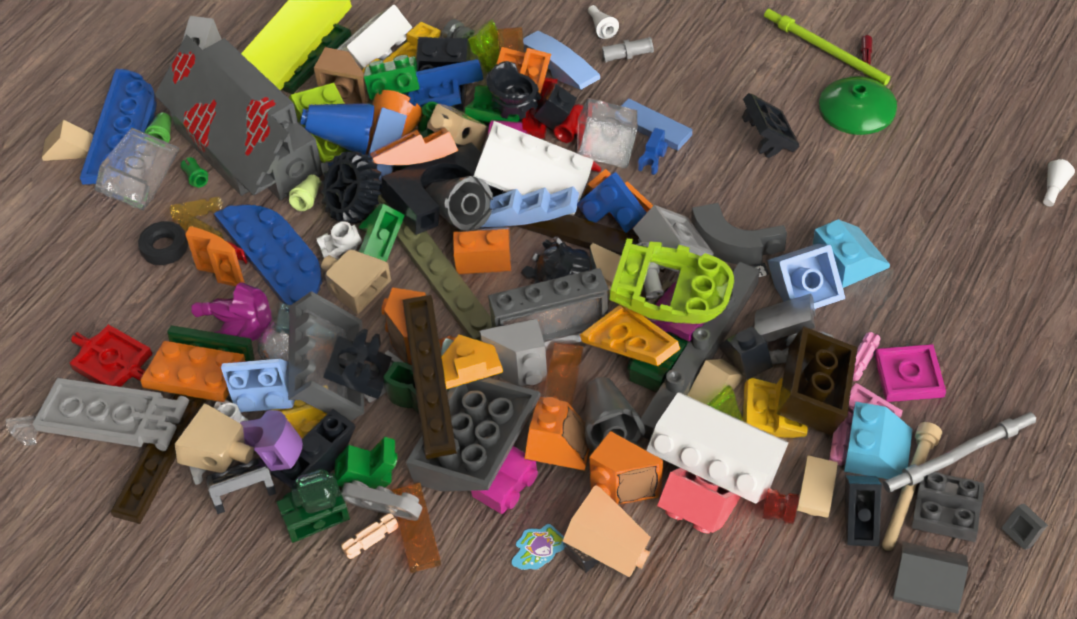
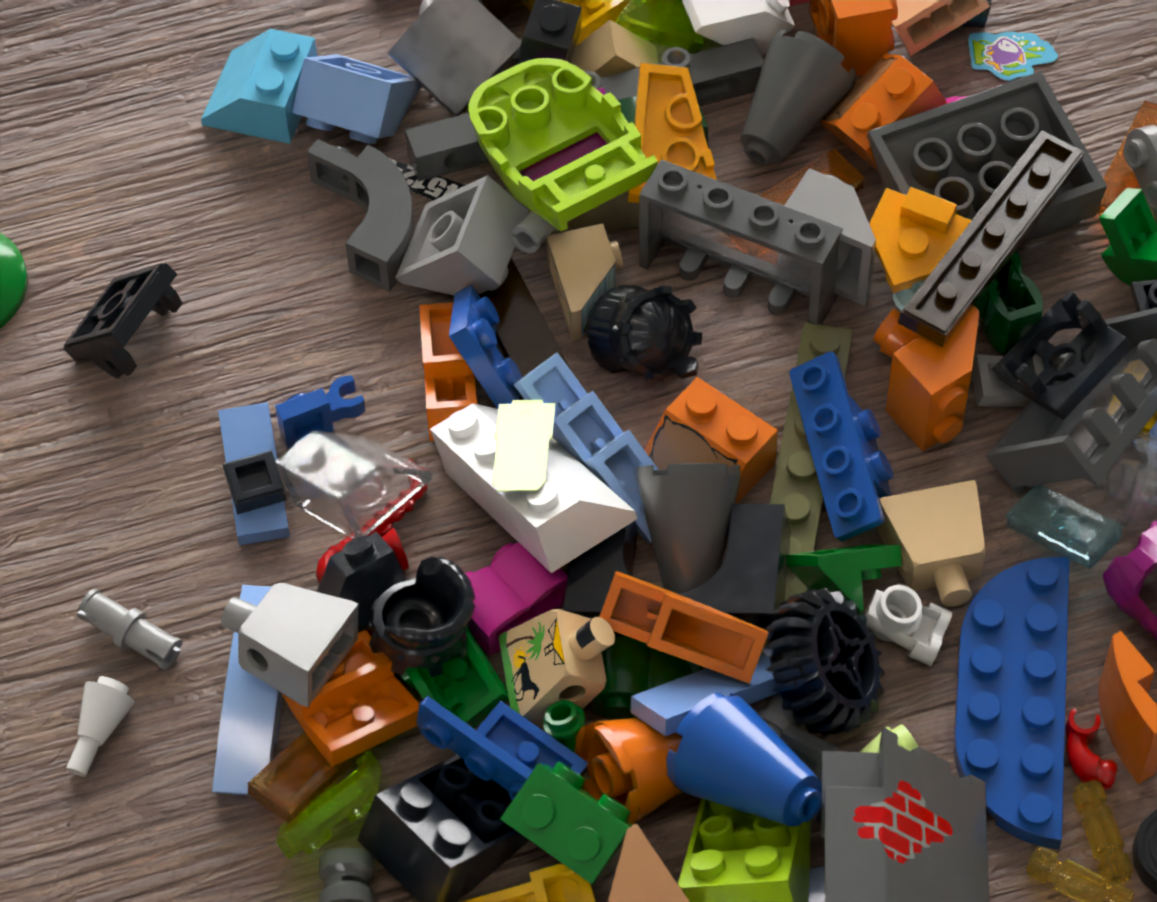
camera: 140 degrees left, 5 degrees up
(419, 275) = (842, 447): none -> blue bracket
(540, 157) = (522, 445): none -> piece
(551, 54) = (293, 638): none -> torso
(646, 112) = (254, 482): none -> black tile

